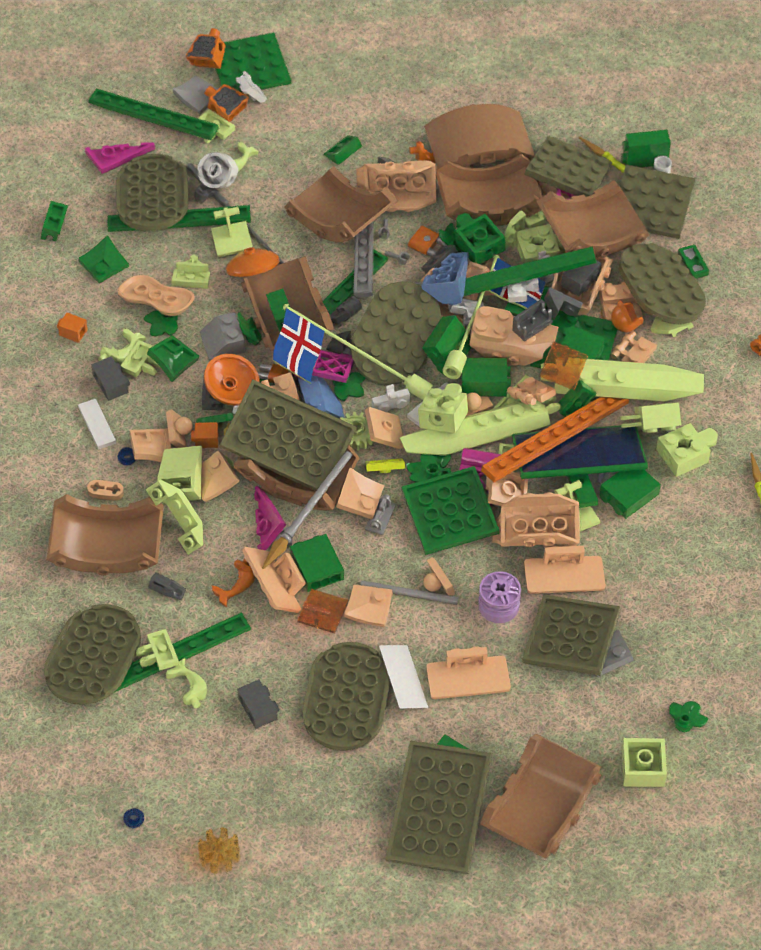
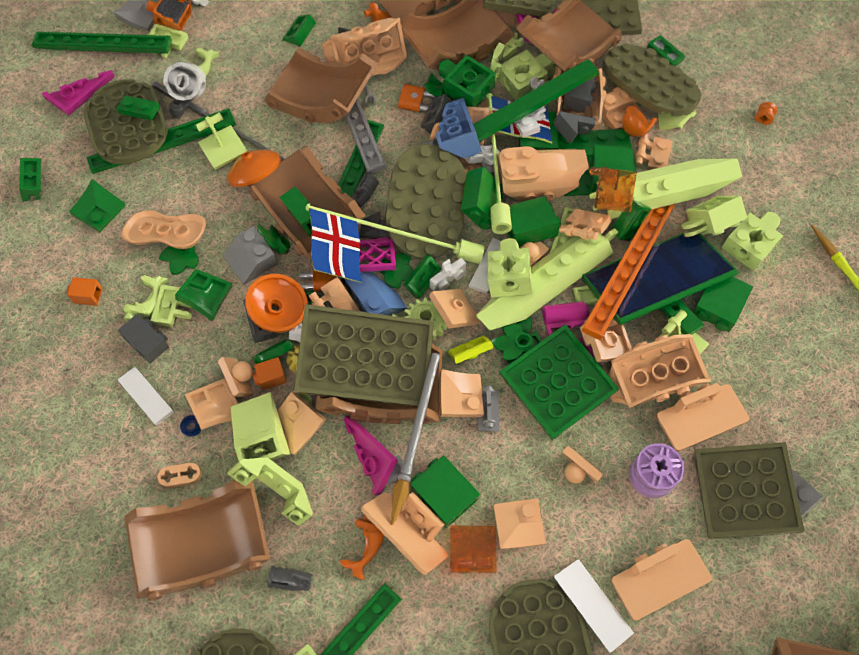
camera: 20 degrees left, 10 degrees up
(167, 183) = (138, 108): none -> green plate
(191, 274) = (193, 195): yellowish green slope -> none
(363, 398) = (420, 277): none -> green plate
(399, 257) = (396, 121): light grey hand -> none
(414, 593) = (555, 492): light grey piece -> none
(532, 320) = (560, 151): dark grey hinge -> none

